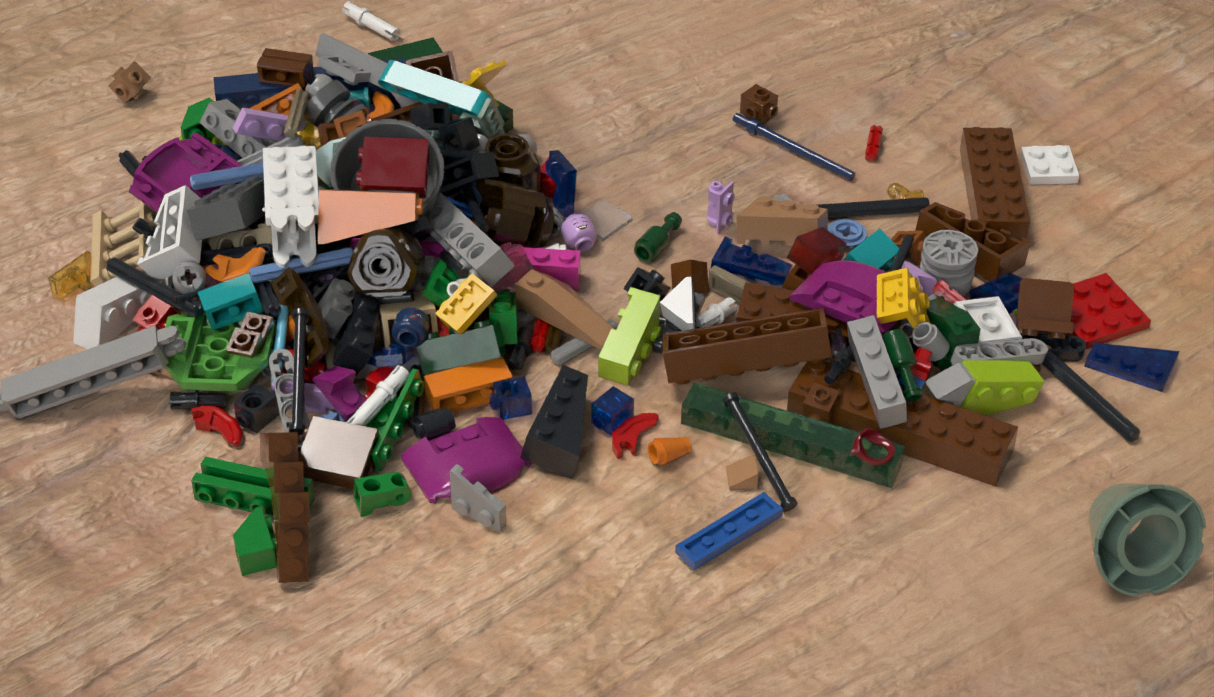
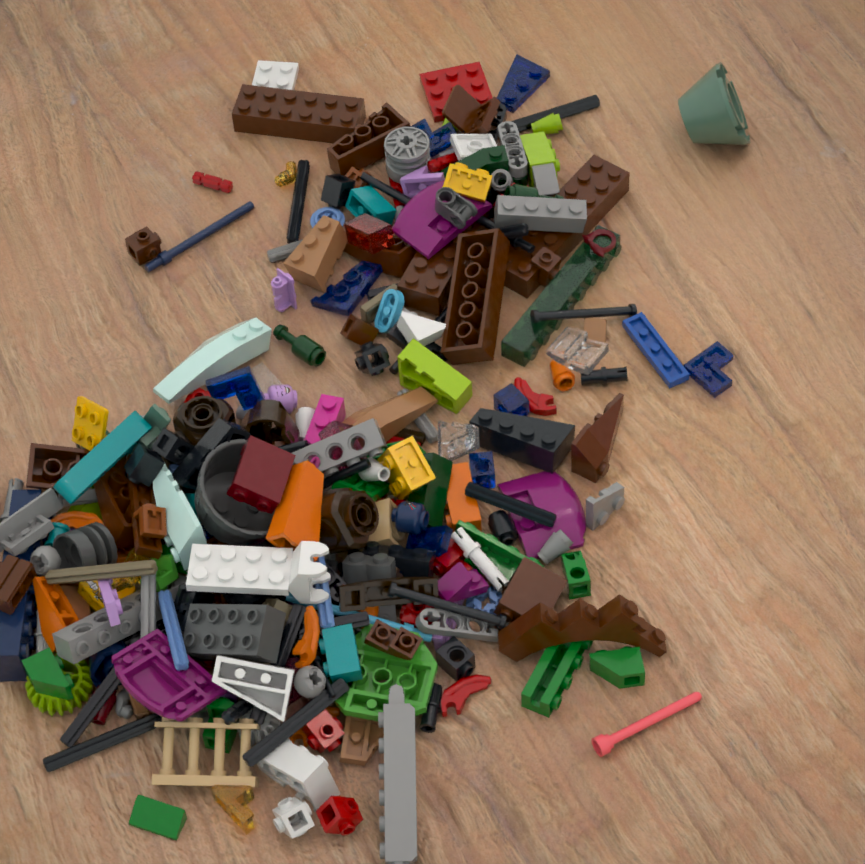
camera: 75 degrees left, 10 degrees up
(56, 313) = (299, 814): none -> white brick
(59, 335) = (339, 815): none -> red brick
(67, 233) = (157, 817): none -> green slope
(155, 542) = (604, 743): none -> coral piece
(414, 468) = (555, 546): none -> light grey cone
(455, 416) = (510, 504): none -> black axle
(540, 370) = (457, 439): none -> clear wing
(563, 486) = (595, 442): none -> reddish brown wedge
(612, 171) = (215, 358): none -> light aqua wedge
(676, 488) = (605, 375): none -> black pin
(702, 454) = (577, 351): none -> clear slope
(712, 579) = (706, 369): none -> clear blue plate
(726, 288) = (389, 310): none -> medium azure plate
(847, 286) = (457, 208): none -> dark grey piece
(888, 219) = (336, 190): none -> black brick
(1068, 393) = (550, 124): none -> lime cone

